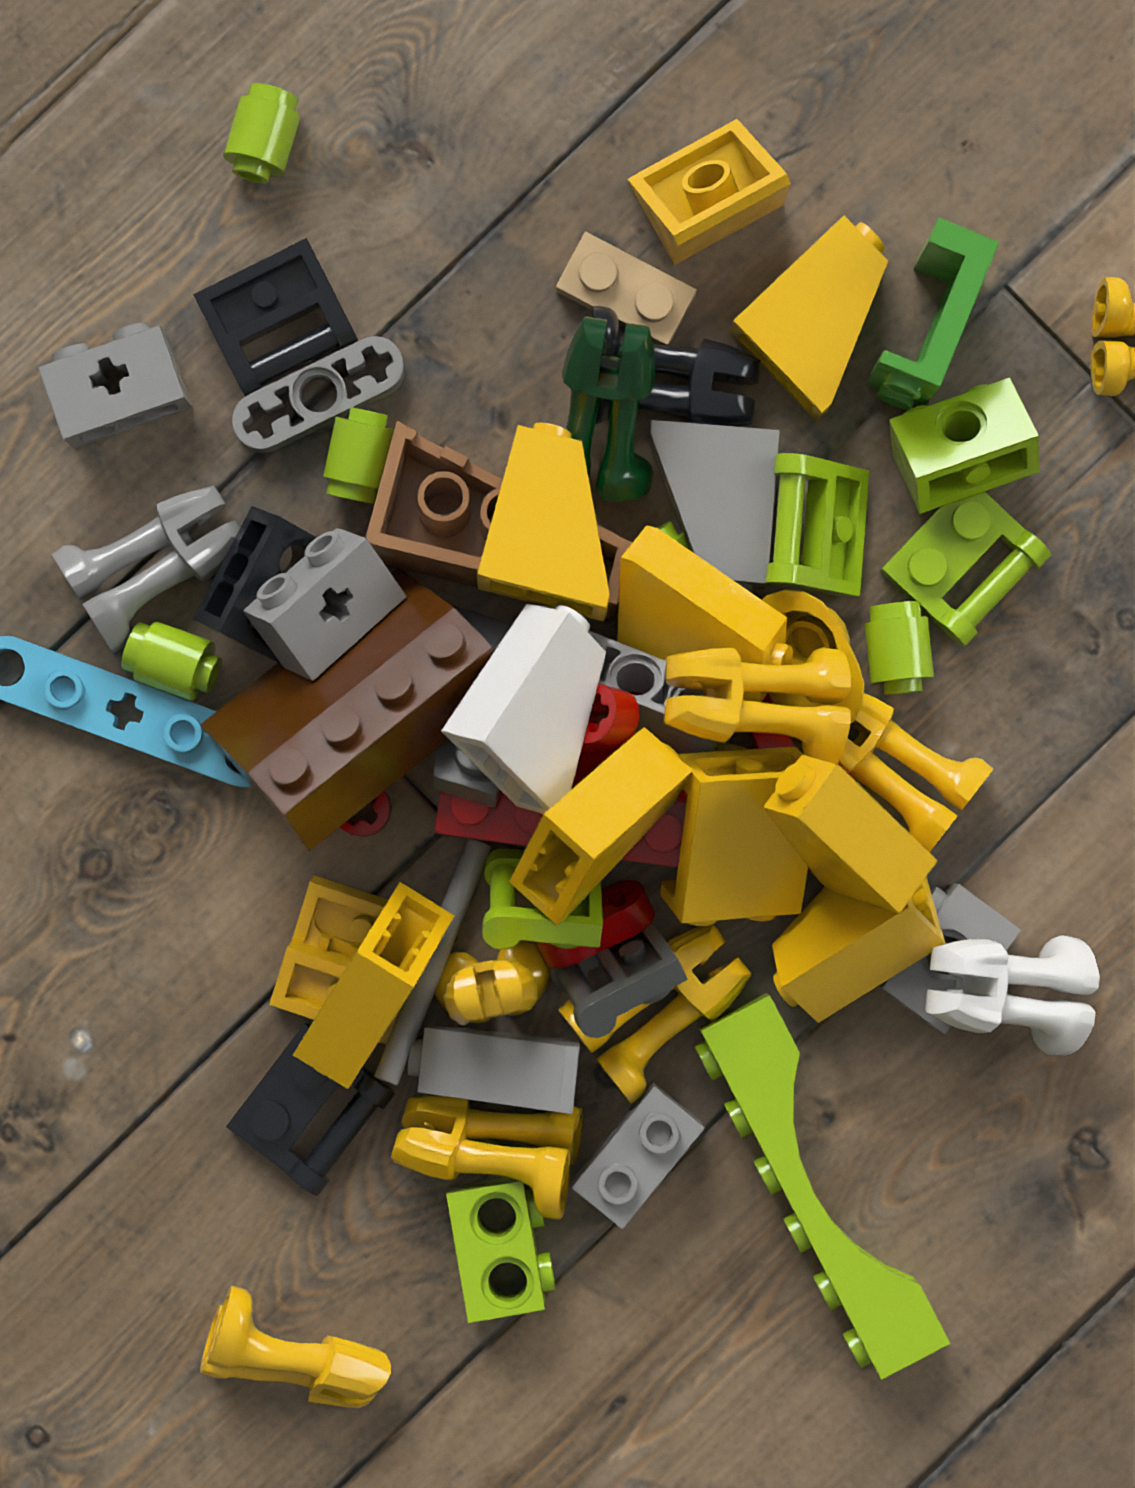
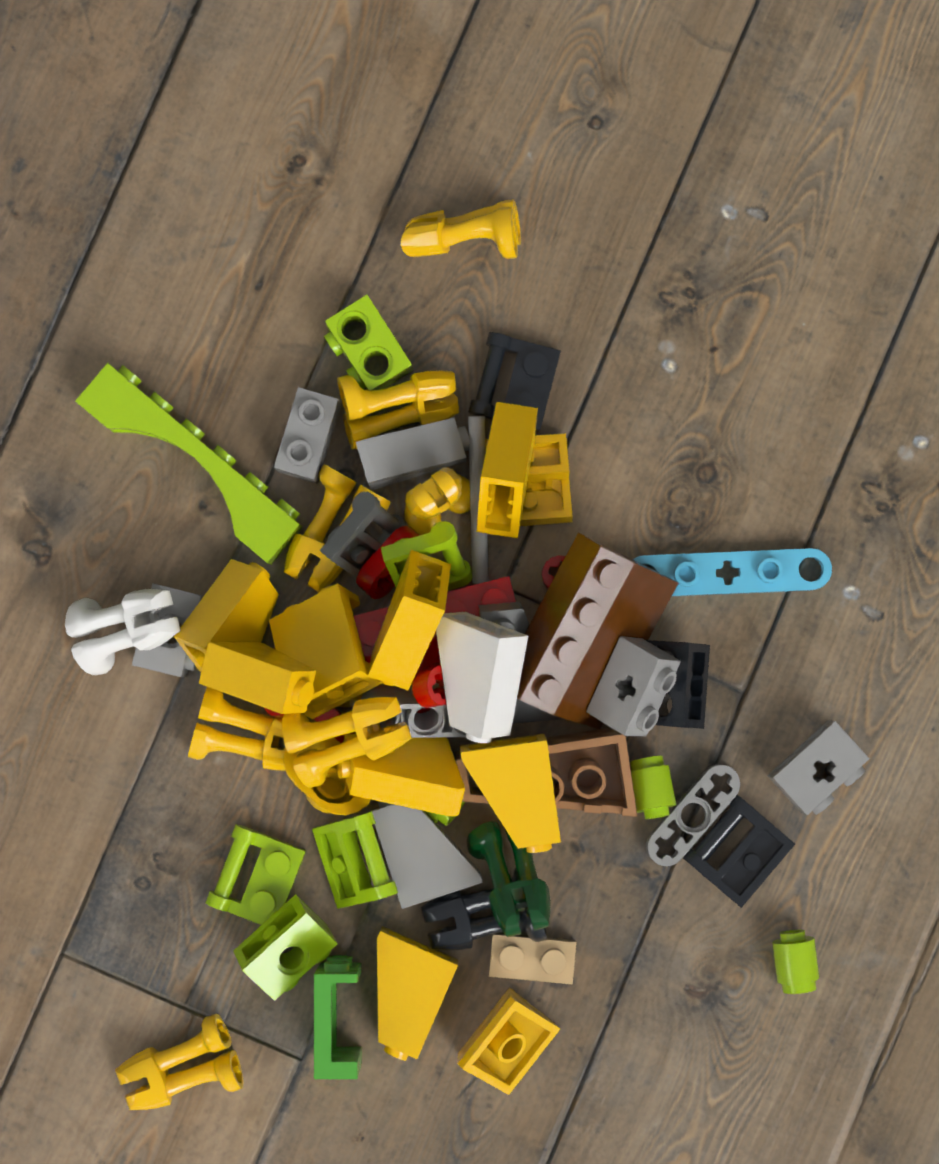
camera: 155 degrees right, 0 degrees up
(171, 660) = (712, 615): lime brick -> none
(175, 519) = (759, 632): light grey piece -> none
(898, 647) = (275, 806): lime brick -> none

